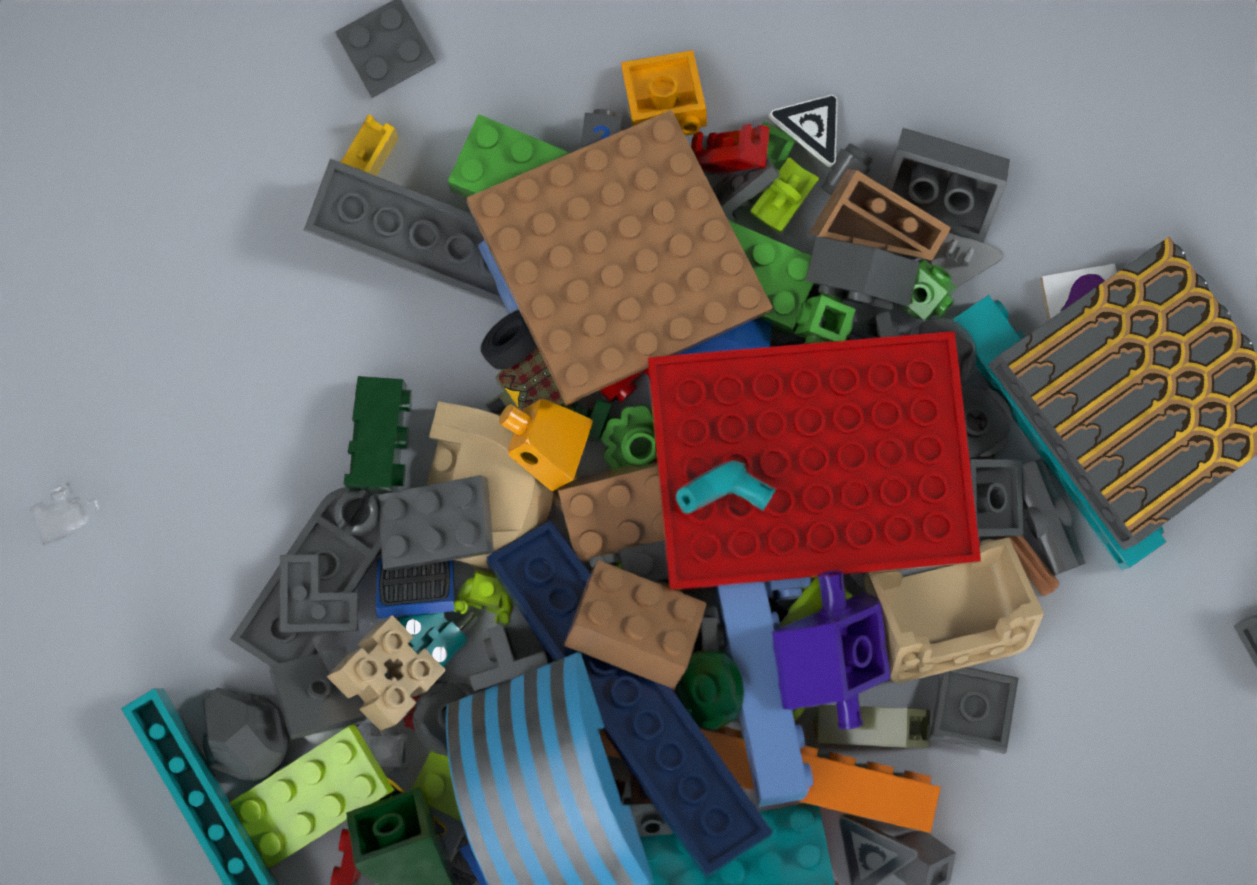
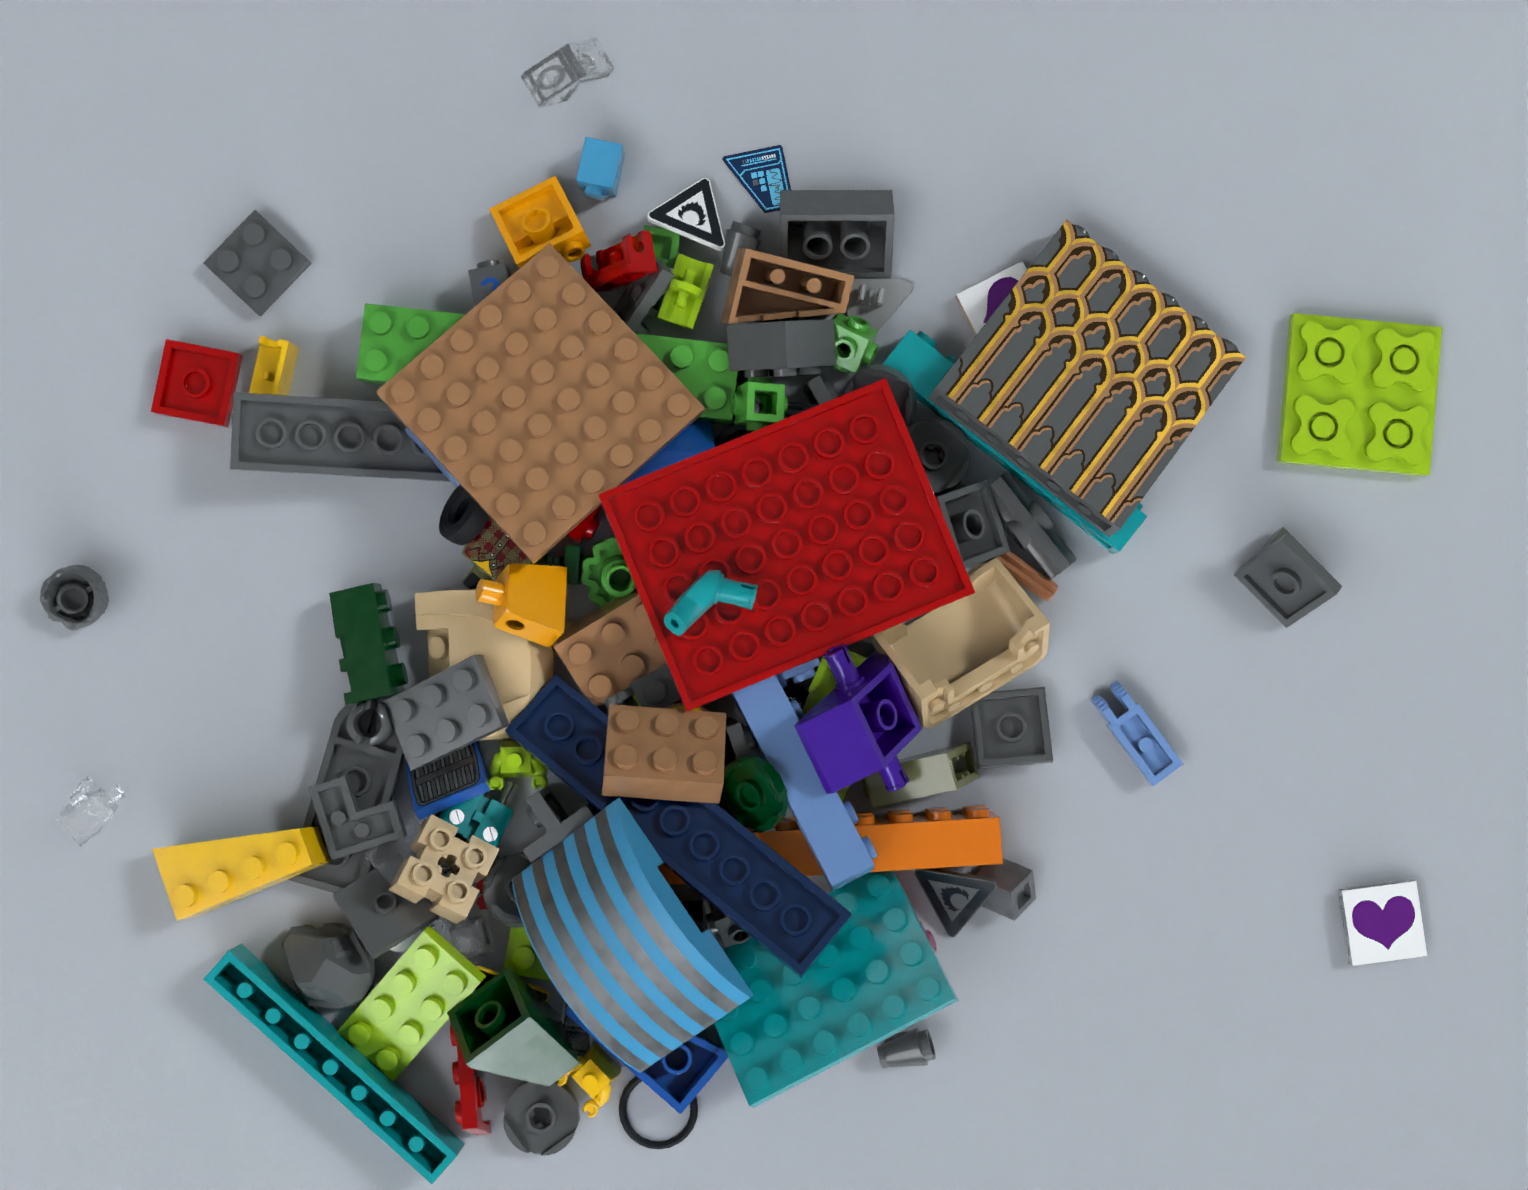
camera: 10 degrees left, 5 degrees up
(113, 306) = (74, 596): none -> dark grey hair
(177, 611) = (226, 870): none -> yellow wedge
(293, 141) = (196, 383): none -> red plate
(737, 56) = (600, 168): none -> dark azure brick
(888, 108) = (761, 174): none -> dark blue sticker
(1096, 754) = (1138, 736): none -> medium blue hinge

